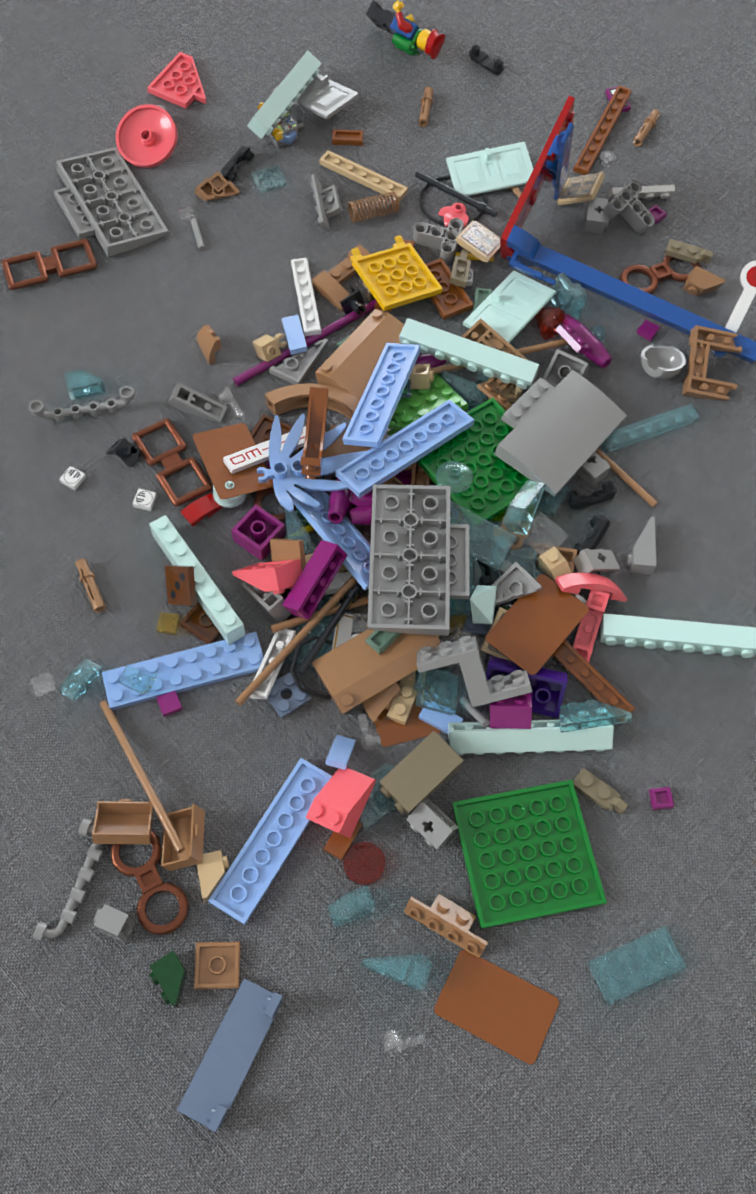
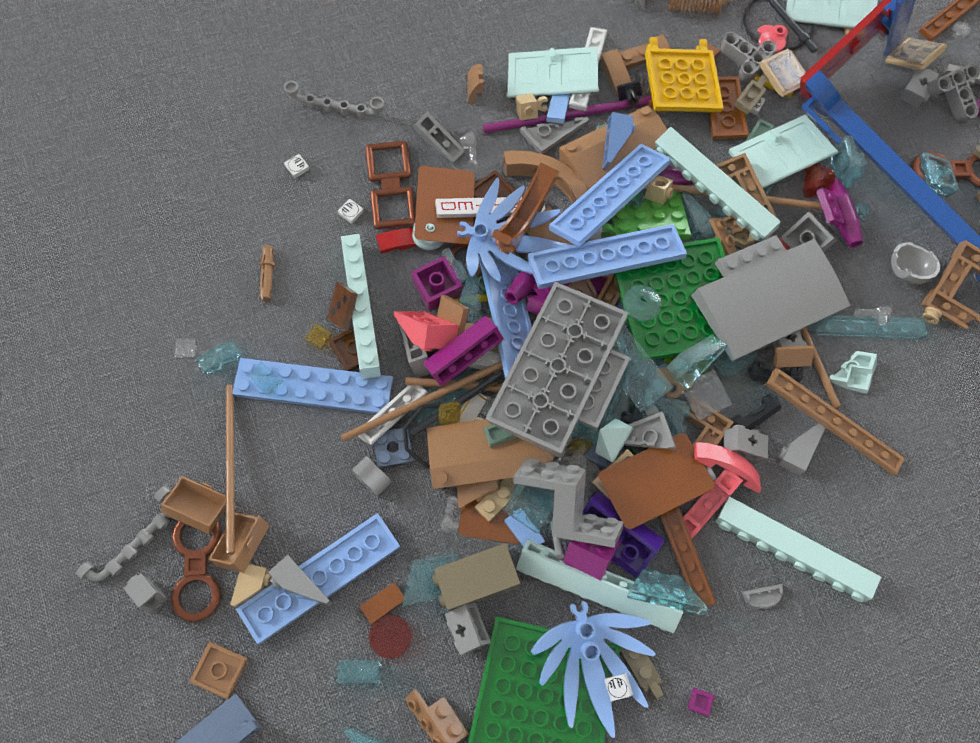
camera: 25 degrees right, 5 degrees up
(83, 384) = (343, 80): clear light blue slope -> none
(125, 451) = (353, 159): black bracket -> none
(169, 703) = (286, 411): magenta tile -> none
(171, 977) = (173, 662): dark green slope -> none
(255, 849) = (295, 581): none -> light grey slope
(273, 509) = (456, 265): none -> clear light blue tile
(276, 309) = (553, 72): none -> light aqua door
(279, 728) = (371, 476): none -> light grey axle
(327, 640) = (449, 413): none -> clear yellow plate
(340, 752) = (415, 523): light blue tile -> none
(341, 801) = (393, 571): coral slope -> none
(362, 338) = (618, 131): none -> medium blue slope
(542, 788) = (586, 643): none -> light blue plant
(553, 564) = (701, 428): tan slope -> none
(588, 814) = (618, 687): none -> white tile
(601, 474) = (793, 356): none -> medium nougat tile
(648, 280) = (939, 174): none -> clear light blue plate
(648, 330) = (916, 225): magenta tile -> none
(656, 413) = (881, 314): none -> clear bar
(657, 469) = (856, 372): none -> light aqua slope
(660, 515) = (835, 421): none -> medium nougat tile
(671, 687) = (763, 597): none -> light grey tile
(696, 398) = (932, 315): none -> tan bush

